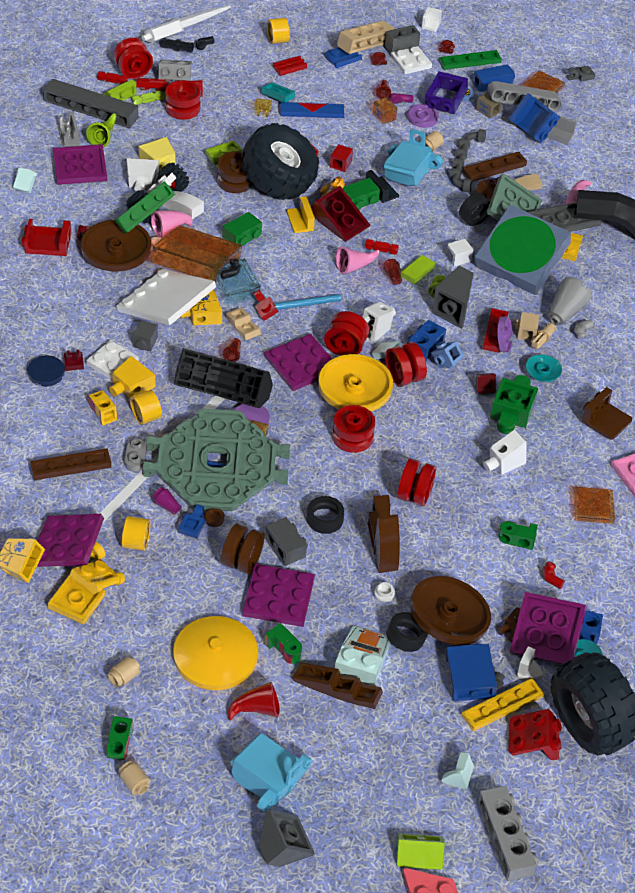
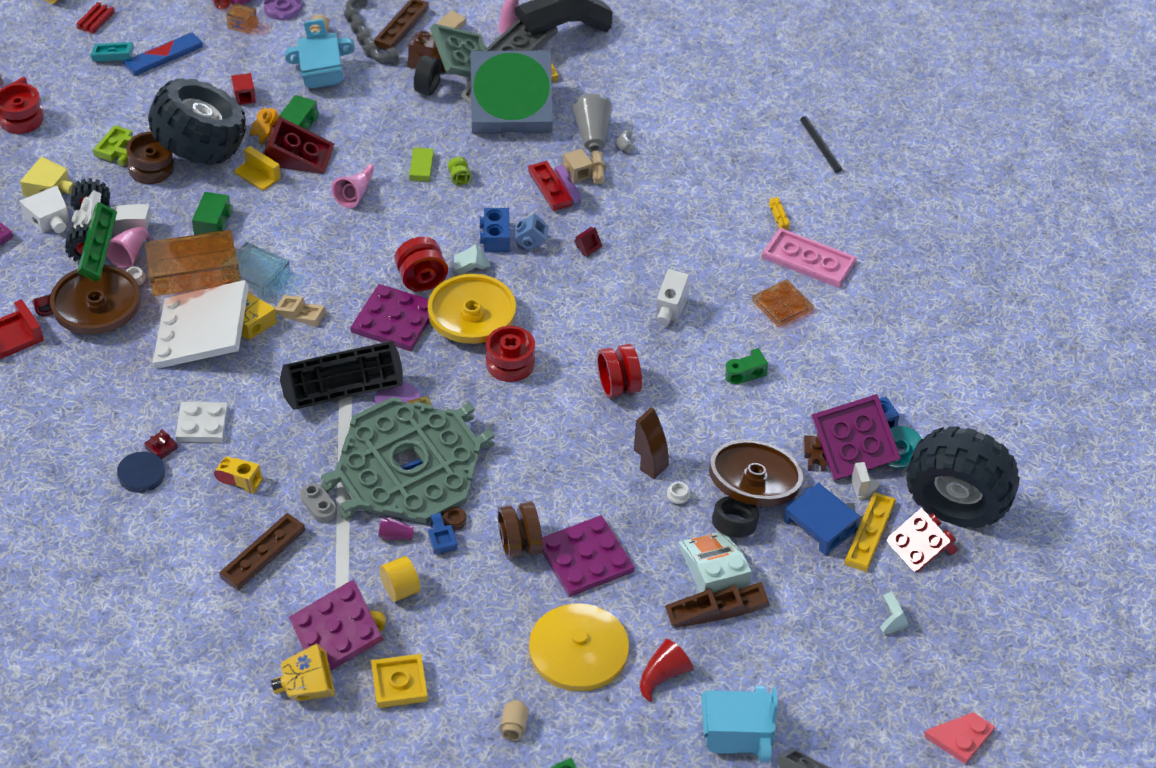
camera: 35 degrees left, 0 degrees up
(96, 576) = (394, 644): yellow plate -> none
(132, 379) = (244, 428): yellow torso -> none
(145, 336) = (215, 377): dark grey brick -> none
(146, 407) = (288, 447): yellow piece -> none
(232, 271) = (249, 260): black arm -> none
(232, 350) = (318, 344): clear red cone -> none
(263, 105) = (109, 73): clear yellow tile -> none
(266, 306) = (309, 281): red plate -> none
(285, 643) = (637, 596): green leg -> none
(286, 541) = (550, 498): dark grey brick -> none
(309, 301) = (342, 255): dark azure bar -> none
(325, 526) = (558, 466): black tyre -> none
(379, 320) = (436, 228): white torso -> none
(380, 508) = (614, 429): reddish brown slope -> none
(382, 246) = (365, 159): red axle -> none
(386, 191) = (323, 102): black panel -> none
(392, 269) = (399, 177): clear red cone -> none
(406, 364) = (505, 260): red wheel -> none
(420, 851) = (924, 706): lime panel -> none
(453, 296) = (491, 172): dark grey slope -> none
(461, 252) = (451, 123): white panel -> none
(513, 403) = (634, 246): green brick -> none
(514, 865) = (994, 650): light grey brick -> none
(543, 368) = (627, 198): teal dish -> none
(550, 576) = (805, 391): red arm -> none
(605, 417) = (721, 215): reddish brown bracket -> none

